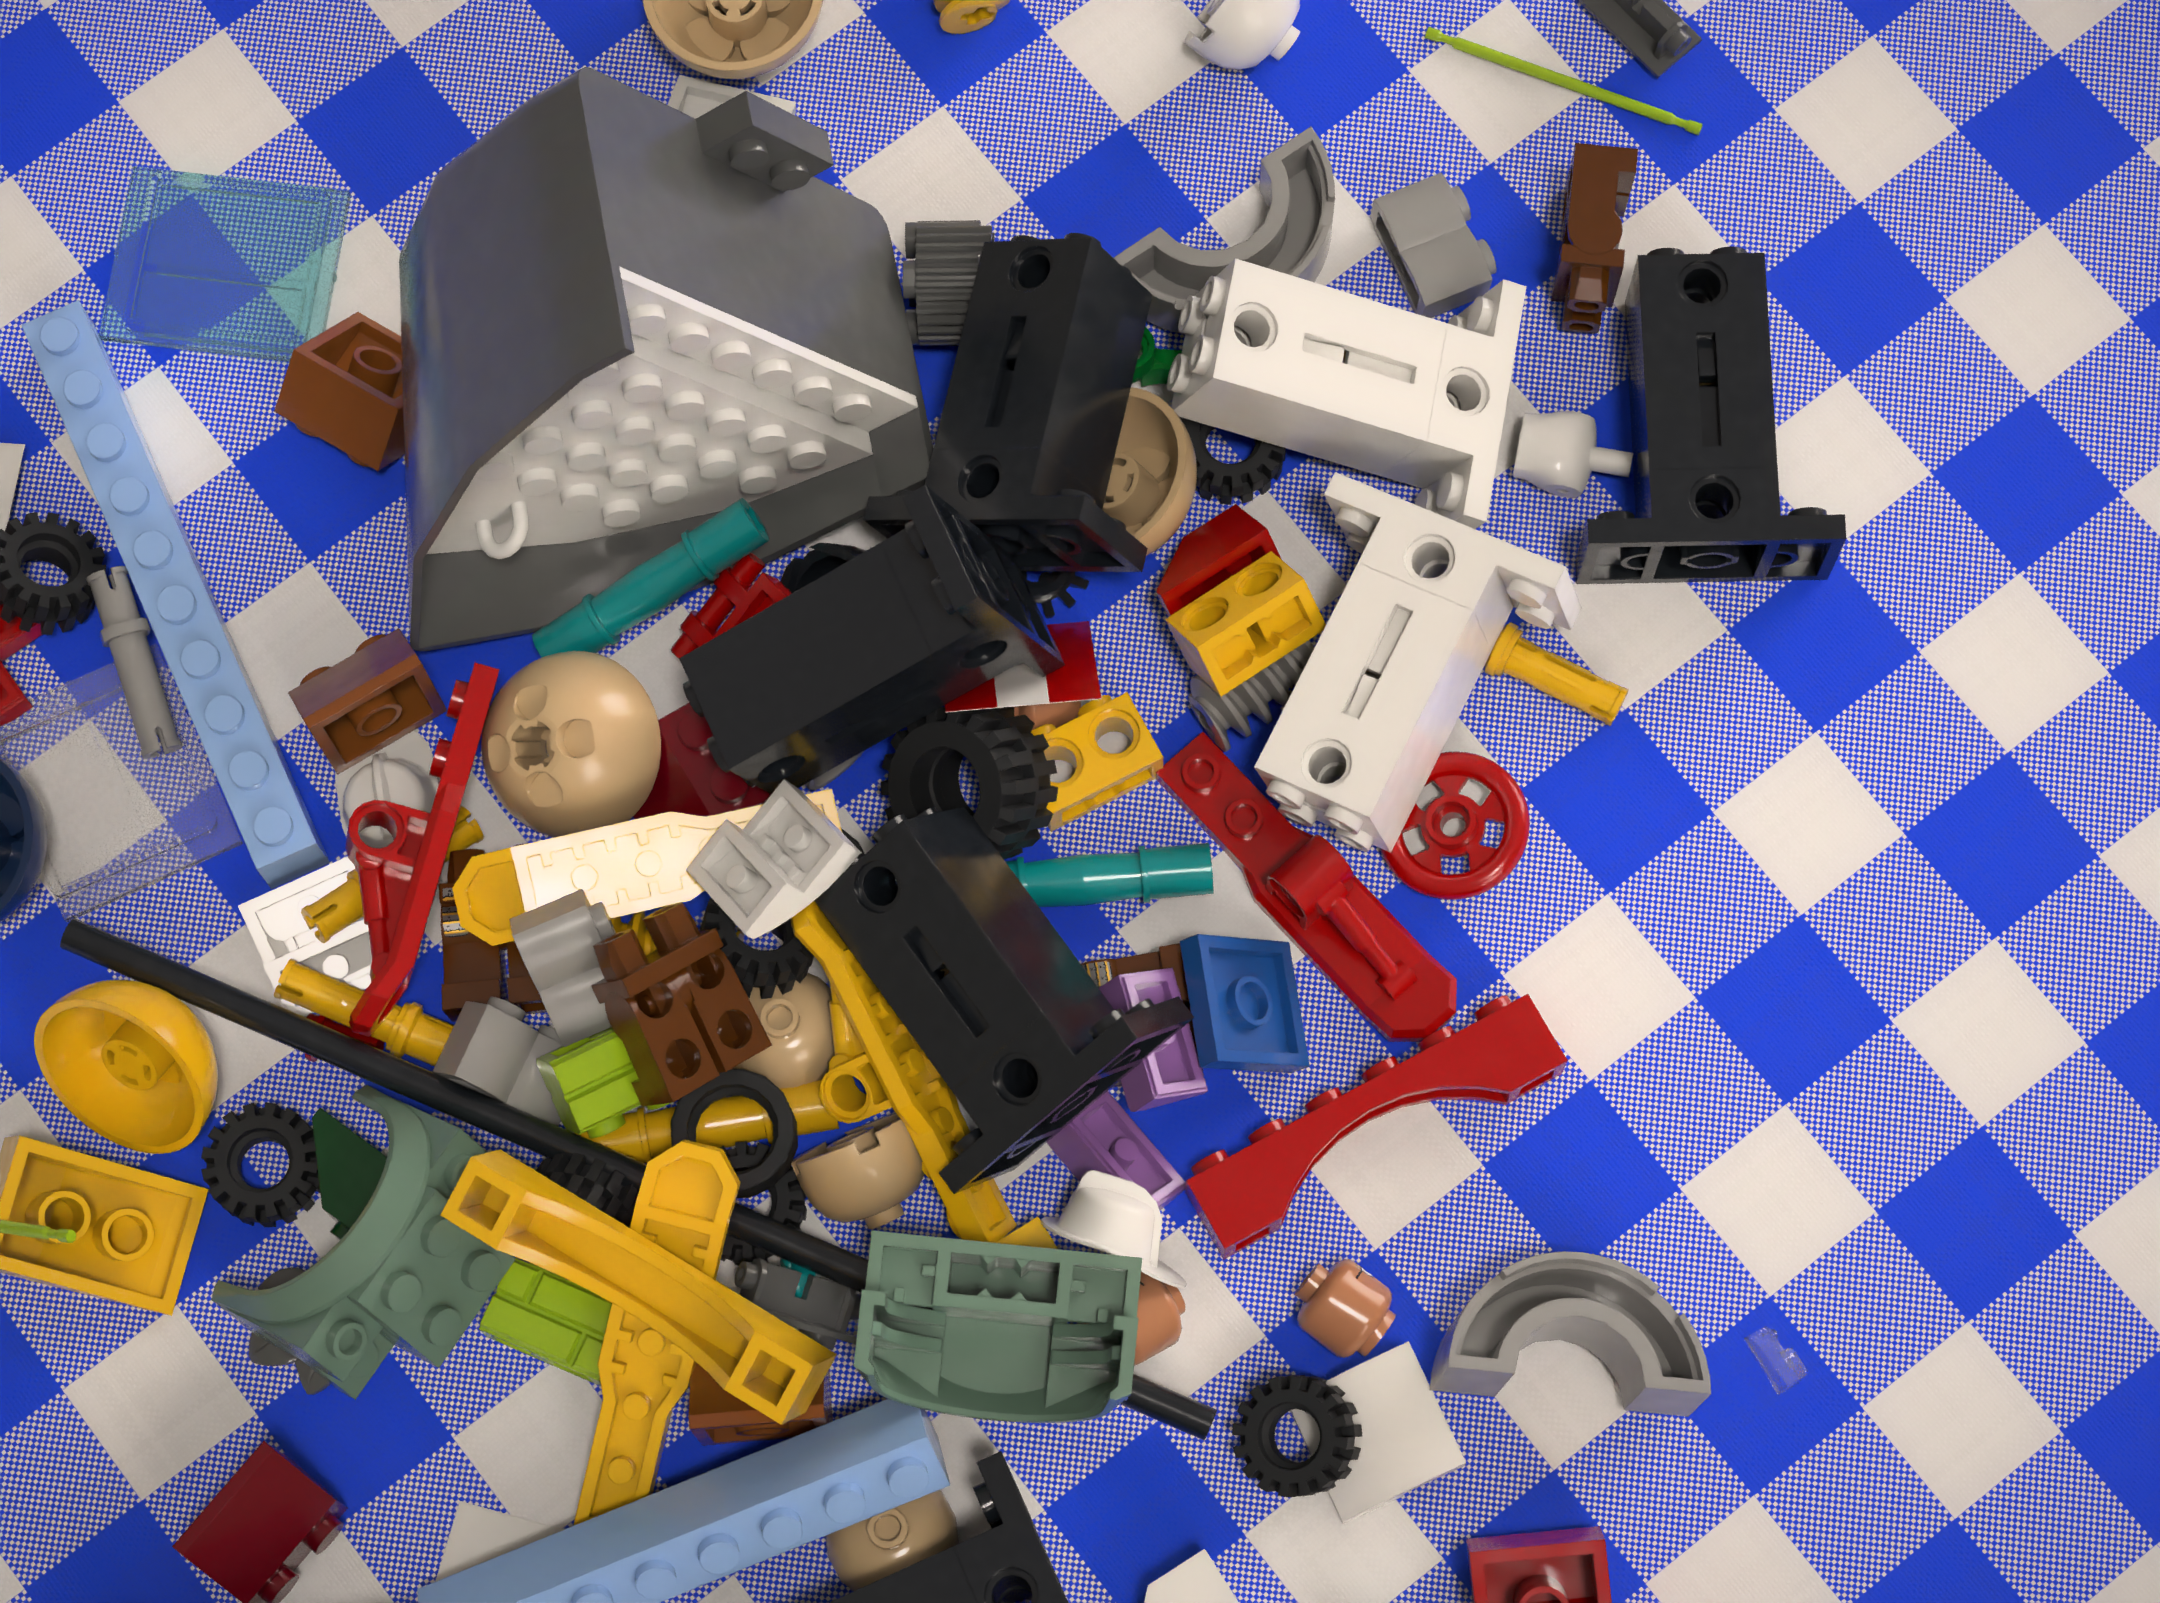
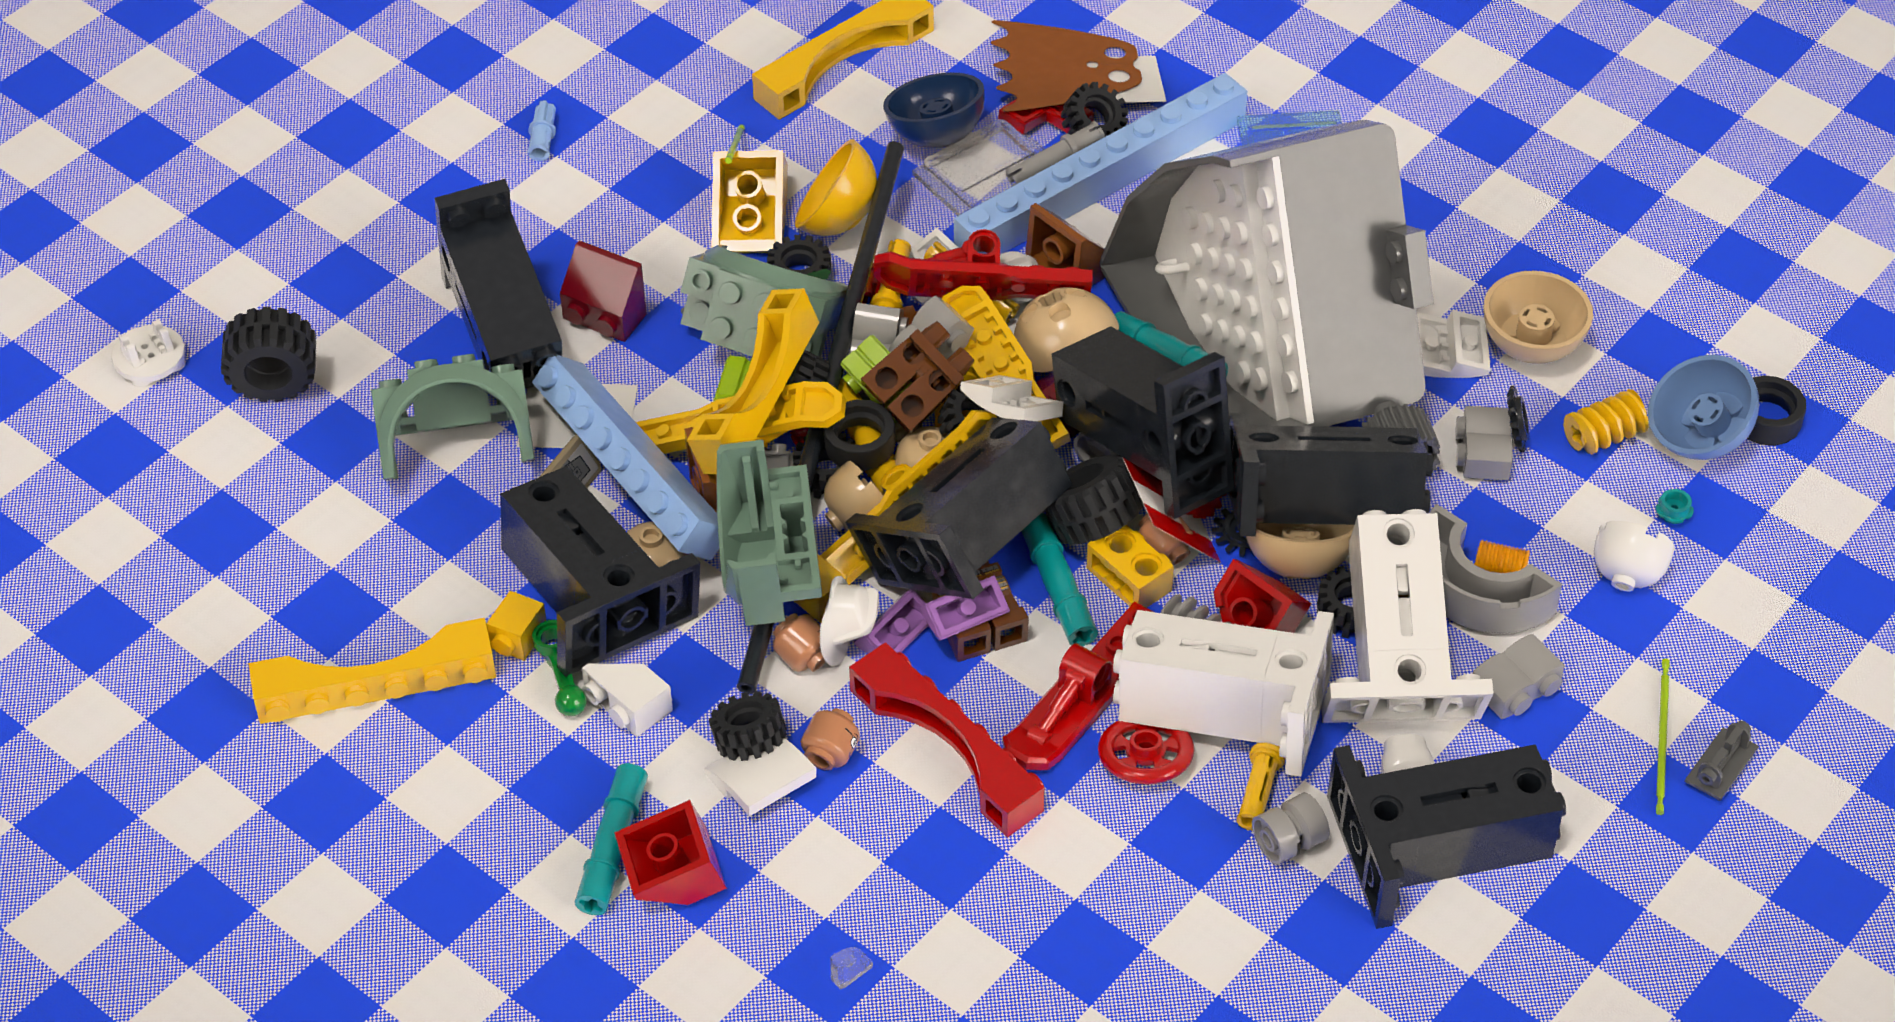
camera: 75 degrees right, 25 degrees down
(934, 89) = (1518, 418): none -> black gear
(954, 153) = (1485, 443): none -> light grey brick
(1211, 204) = (1501, 558): none -> light orange piece
(1244, 1004) = (1000, 655): blue plate -> none
(1246, 623) = (1227, 597): yellow brick -> none
(1582, 1303) = (858, 830): light grey brick -> none
(1591, 233) = (1567, 737): reddish brown hips -> none
(1654, 641) = (1293, 826): none -> light grey wheel

